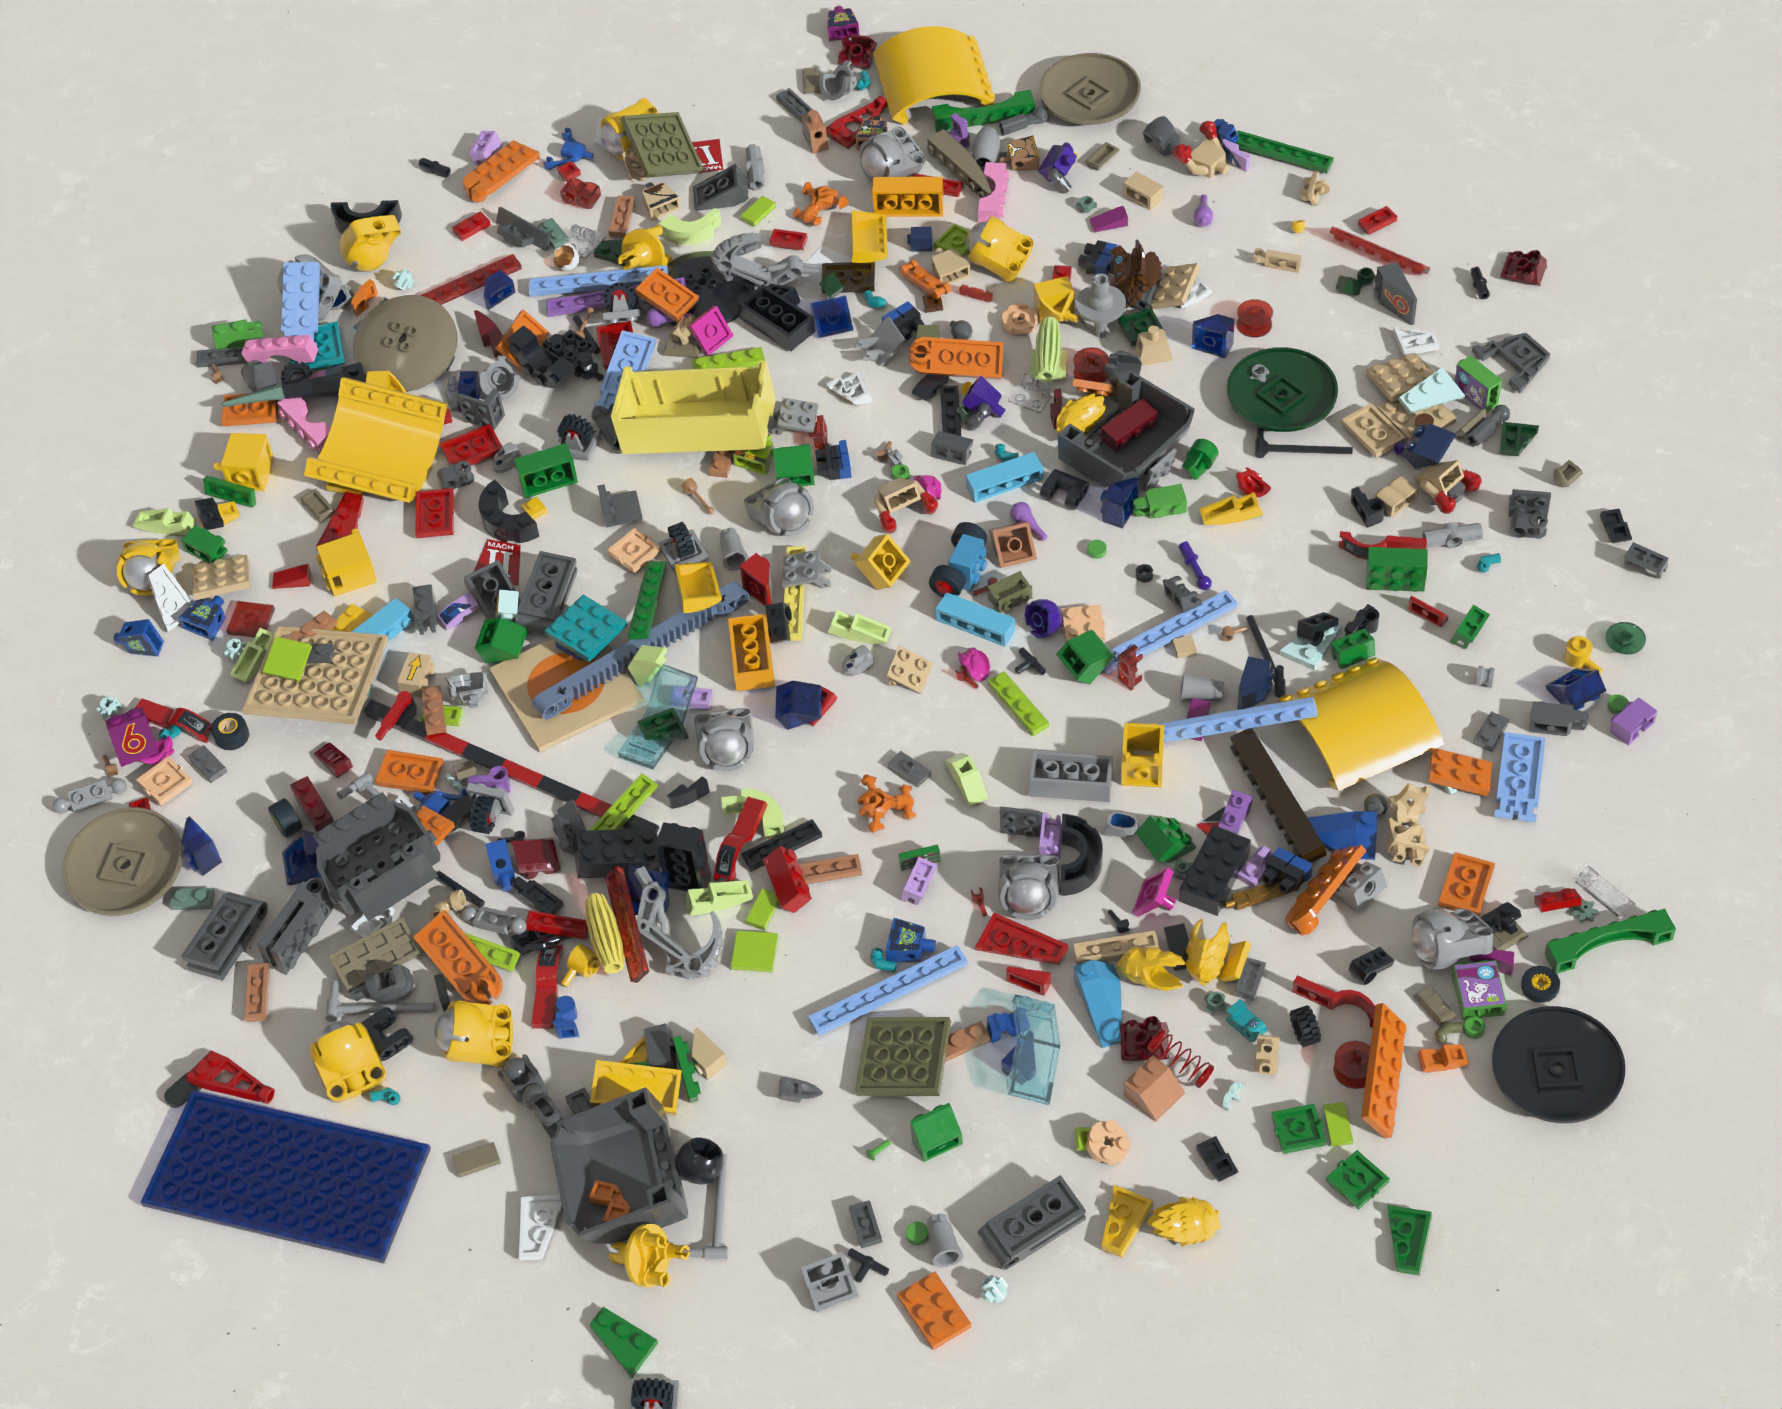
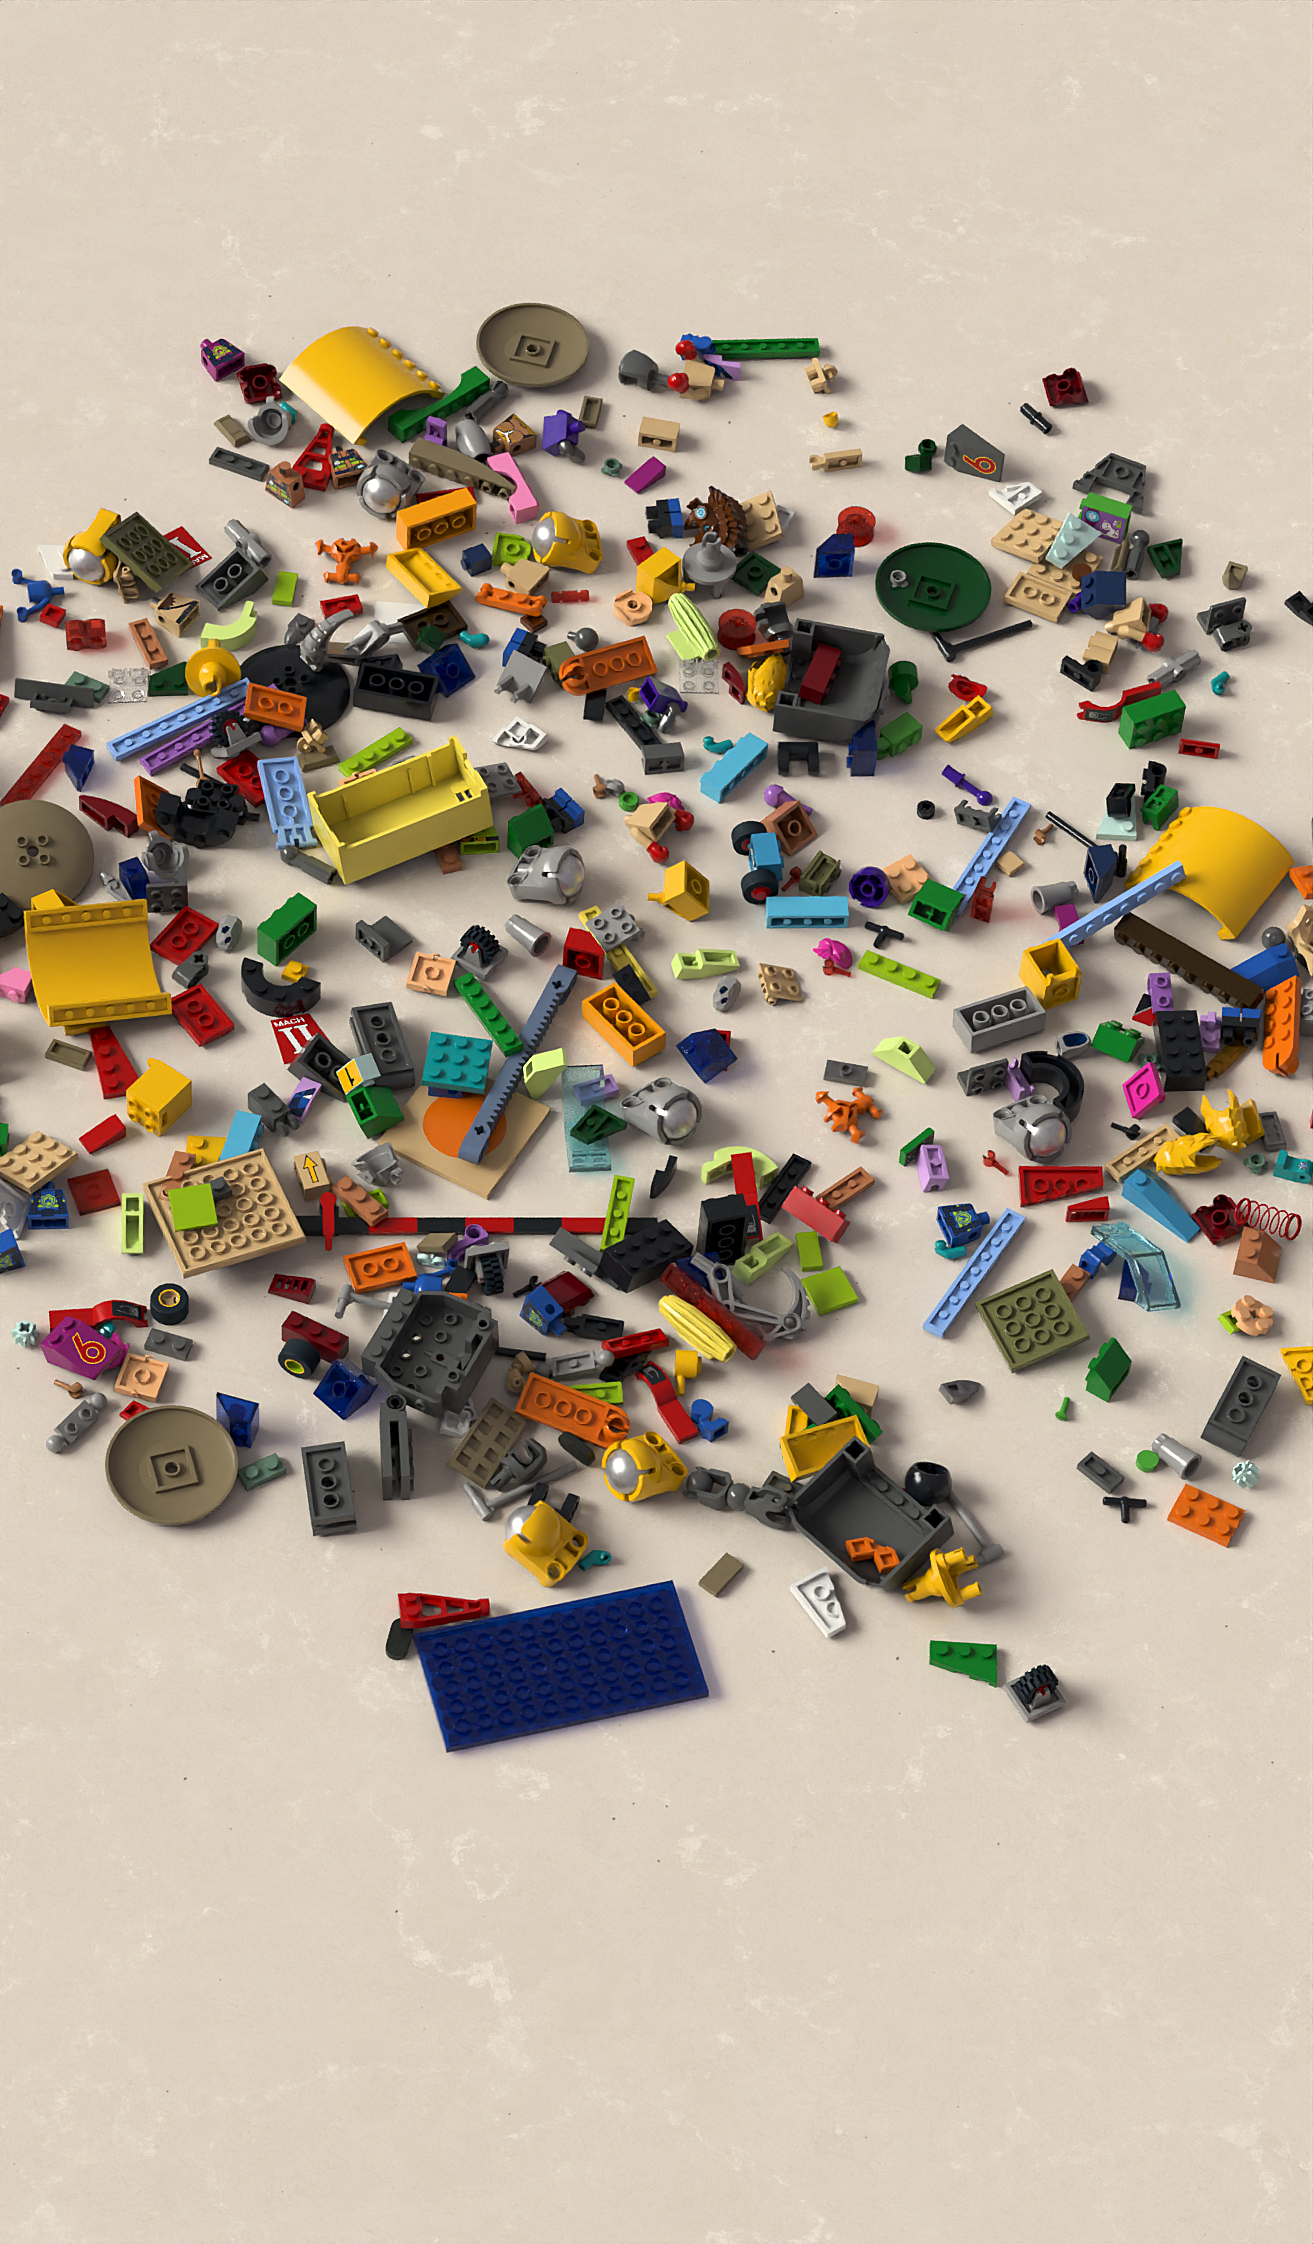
camera: 40 degrees left, 0 degrees up
(234, 649) = (108, 1226): light aqua gear -> none
(257, 992) = (399, 1525): nougat plate -> none
(566, 257) = (127, 707): clear orange hair -> none
(578, 435) = (286, 882): plate -> none
(689, 487) = (437, 892): medium nougat hinge -> none
(697, 586) = (527, 983): yellow slope -> none
(710, 330) = (341, 728): dark pink tile -> none
(827, 1272) = (1096, 1529): light grey brick -> none
(1097, 549) = (866, 803): bright green tile -> none
(1203, 214) = (734, 439): medium lavender piece -> none
(1377, 220) = (900, 388): red plate -> none
(1385, 253) = (931, 419): clear red plate -> none
(1470, 626) = (1246, 748): green hinge -> none
(1485, 676) = (1287, 787): light grey wheel -> none

